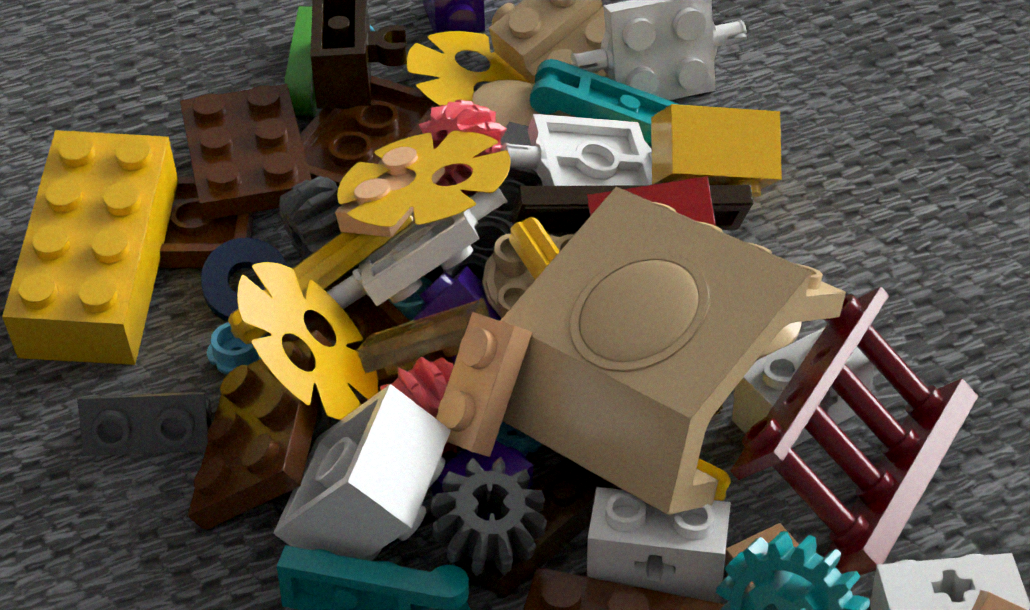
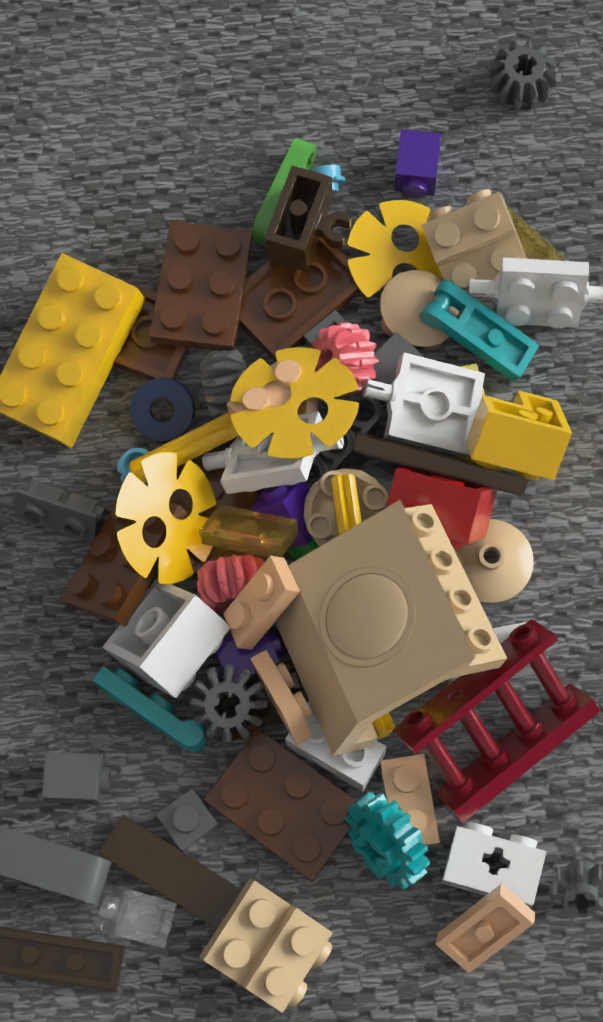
camera: 25 degrees right, 30 degrees up
(573, 480) = (277, 685): none -> light nougat plate

